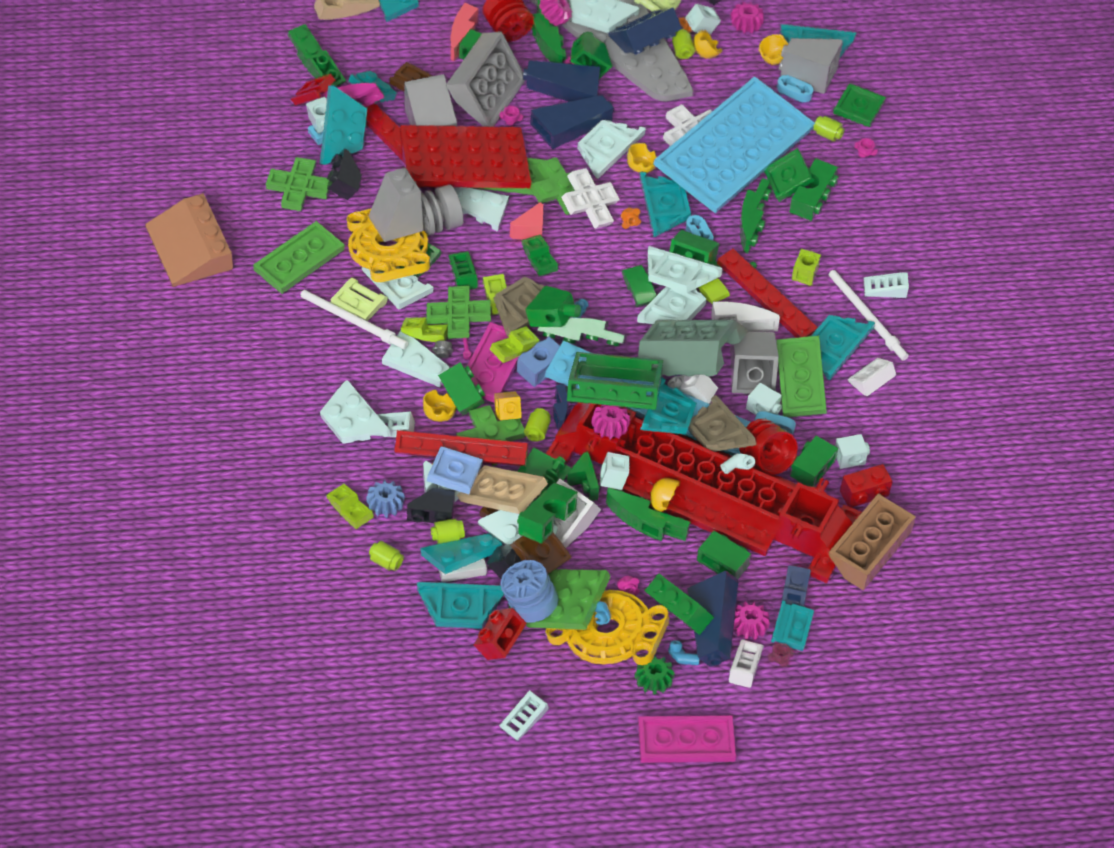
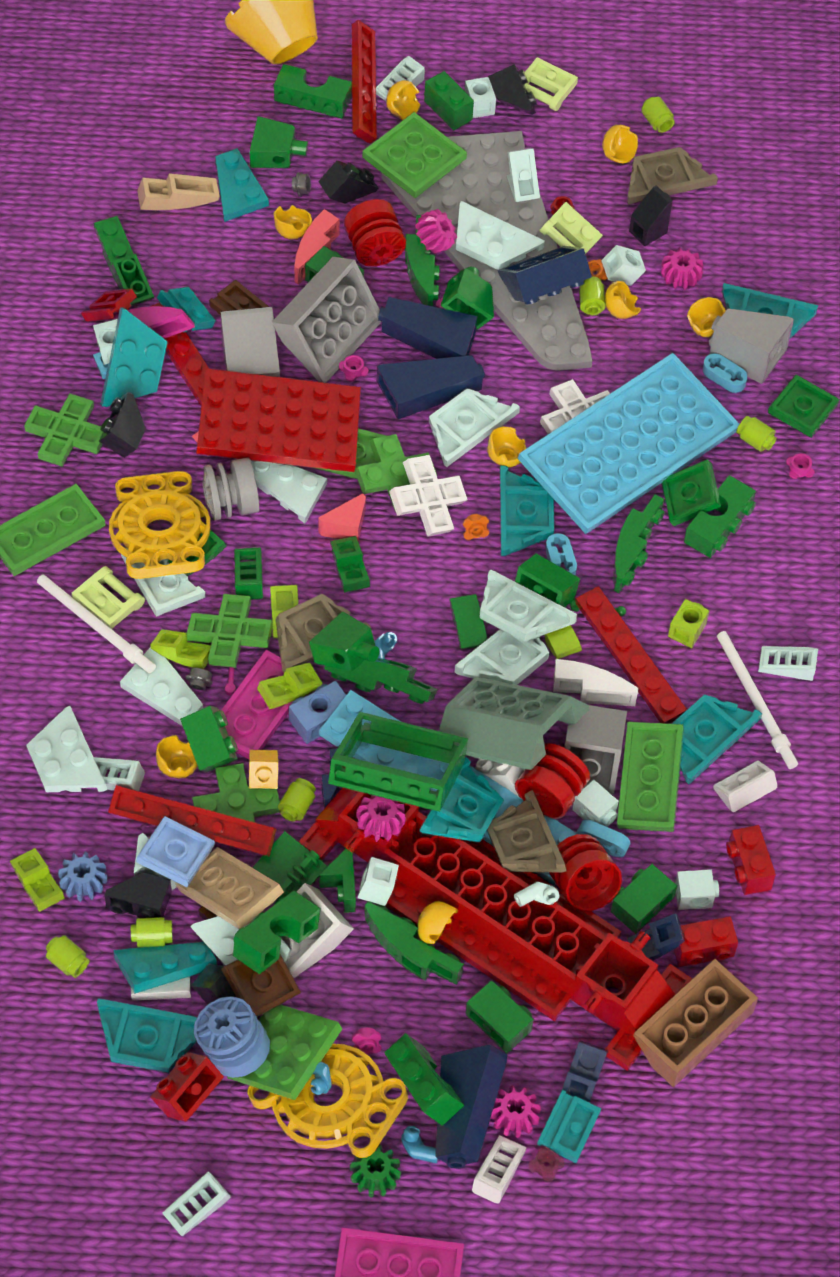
camera: 10 degrees right, 5 degrees up
(397, 206) = (175, 481): light grey slope -> none
(441, 16) = (292, 222): none -> yellow hair
(732, 384) = (554, 780): none -> red wheel
(838, 482) = (664, 937): none -> dark blue slope
(888, 425) = (751, 860): none -> red brick

